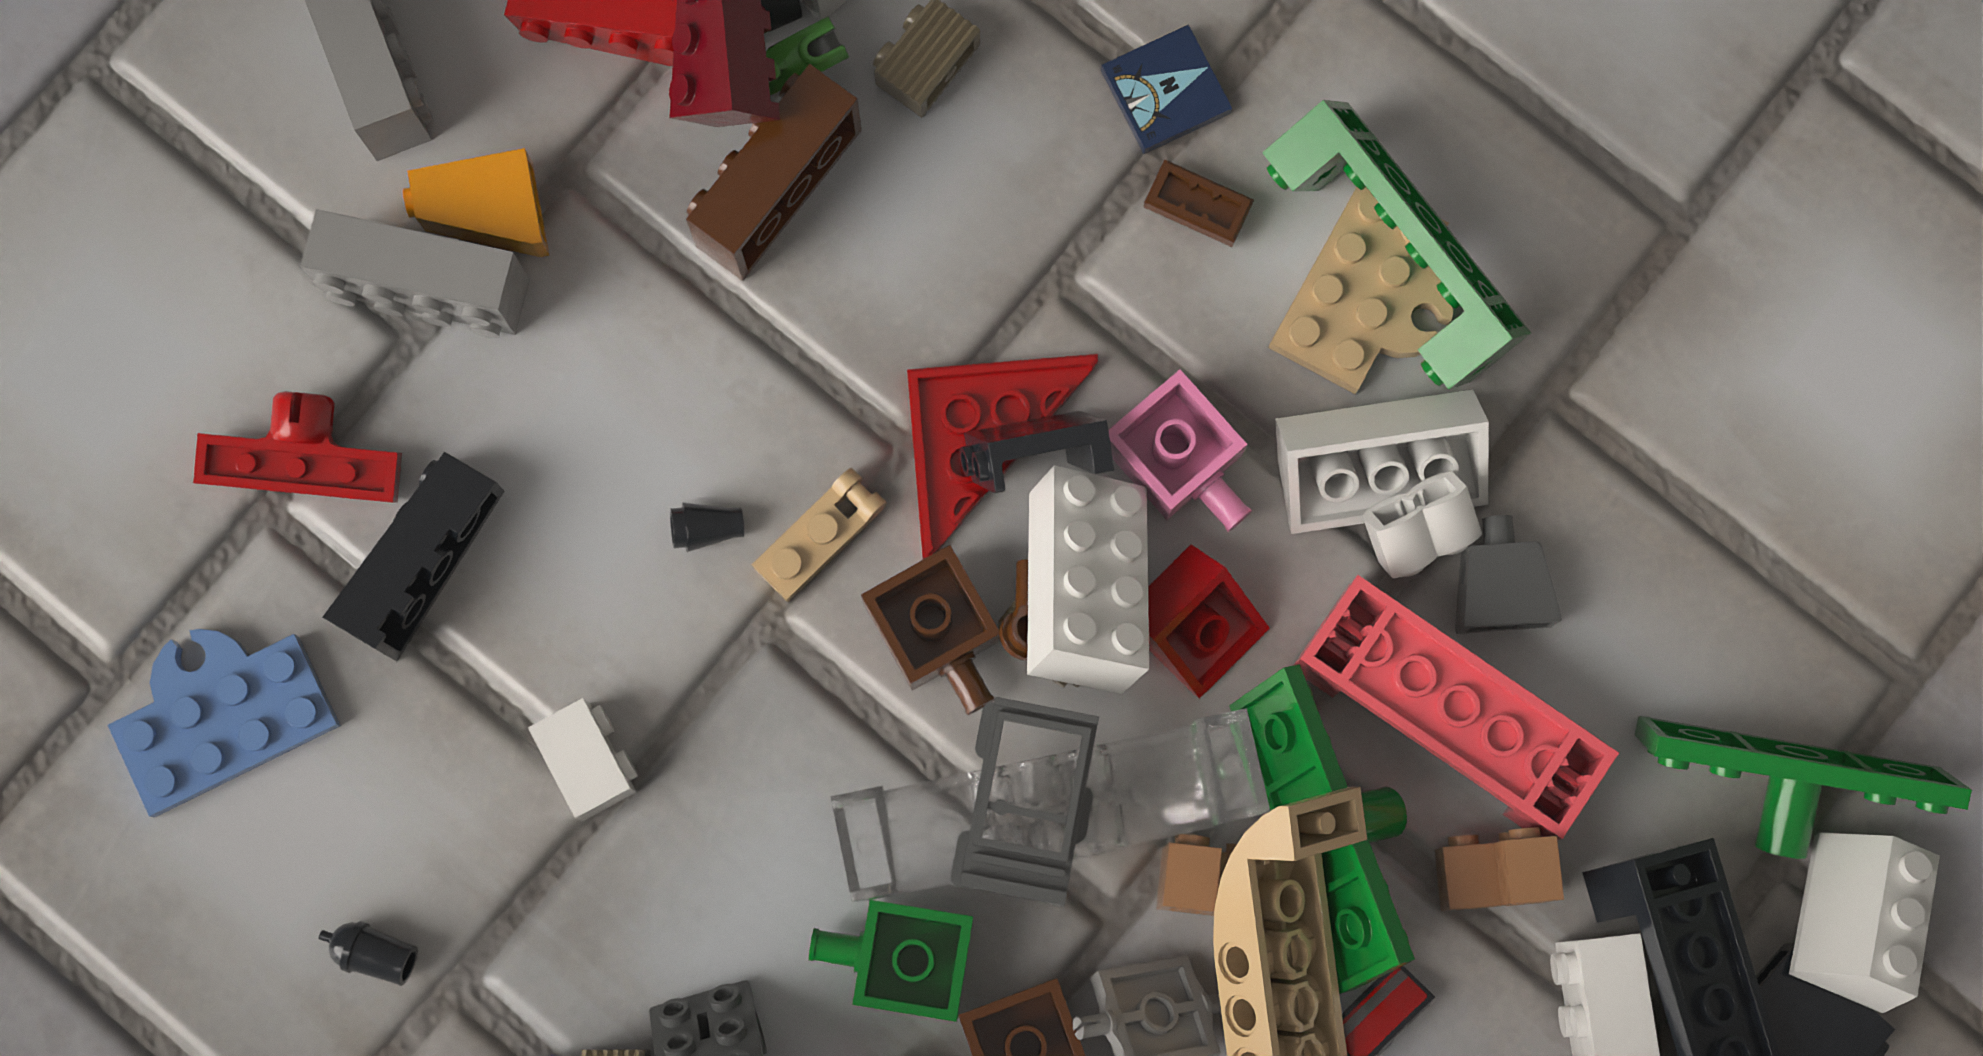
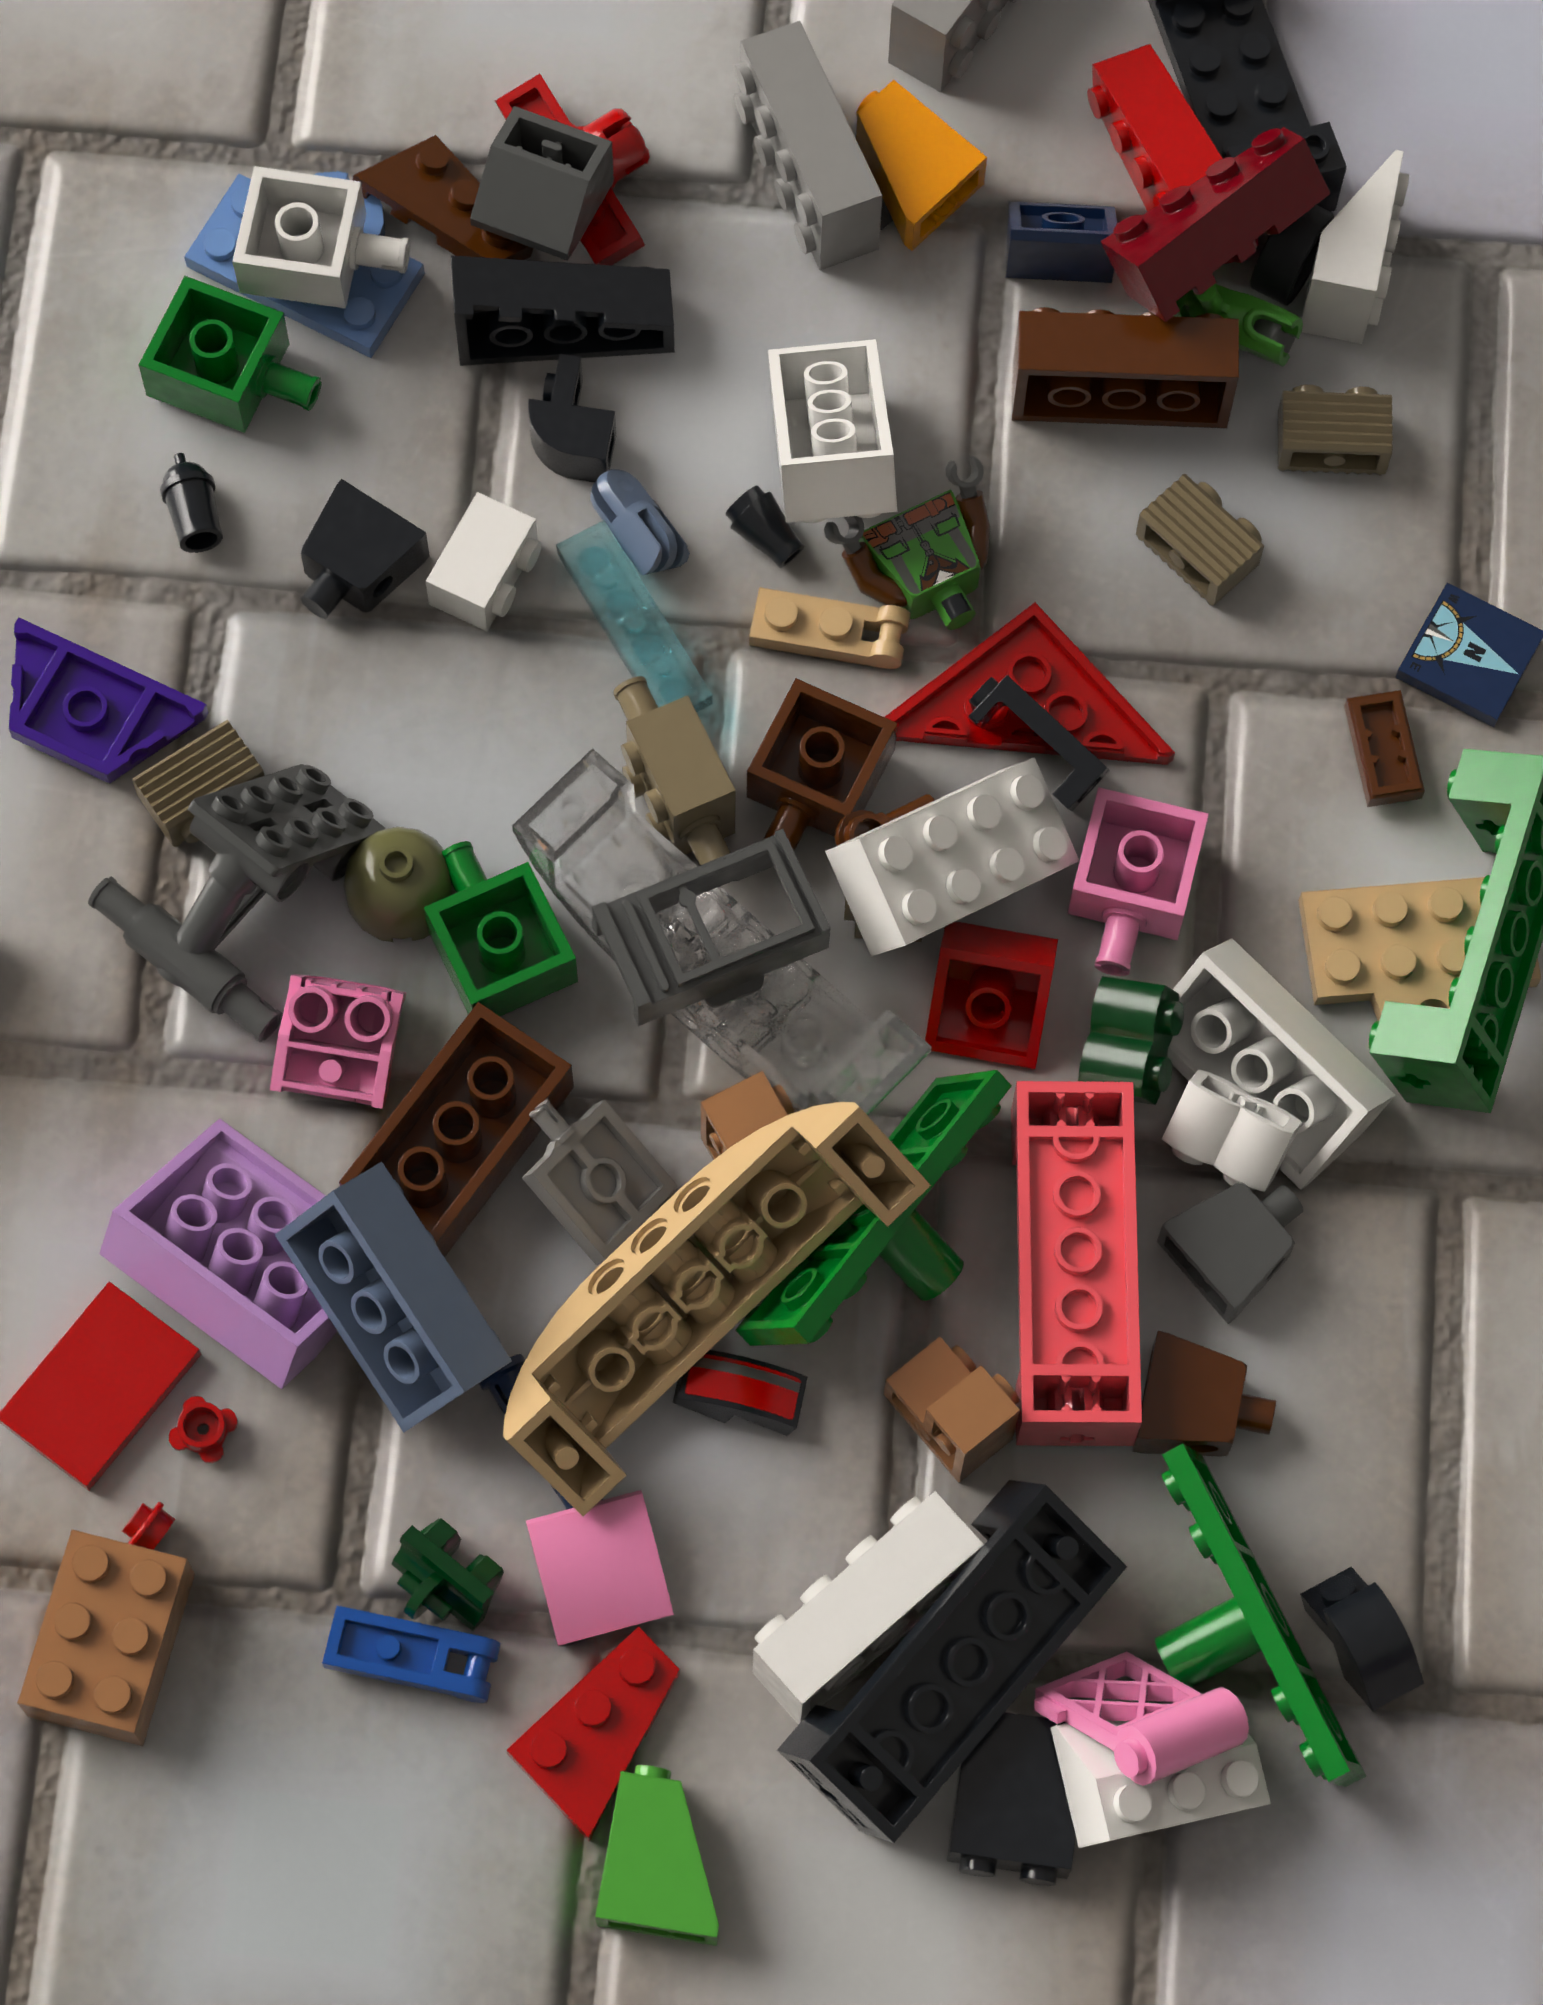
camera: 55 degrees right, 10 degrees down
(217, 715) = (307, 238): none -> white brick
(249, 579) = (438, 194): none -> reddish brown wing
(264, 847) = (222, 357): none -> green brick
(303, 500) = (542, 183): none -> dark grey slope
(506, 851) = (358, 552): none -> black torso
(522, 625) = (567, 436): none -> black brick
(624, 139) = (1059, 242): none -> dark blue slope
(633, 620) = (638, 523): none -> sand blue arm
(679, 426) = (832, 431): none -> white brick
(714, 679) = (631, 616): none -> clear light blue plate
(803, 1002) = (393, 880): none -> olive cylinder
(813, 423) = (924, 554): none -> torso
(874, 735) = (677, 772): none -> dark tan brick
(944, 213) = (1200, 538): none -> dark tan brick
(1306, 548) = (1132, 1036): none -> dark green brick
(1605, 690) = (1196, 1400): none -> reddish brown torso
(1849, 698) = (1366, 1637): none -> black brick
(1865, 894) = (1158, 1736): none -> bright pink piece

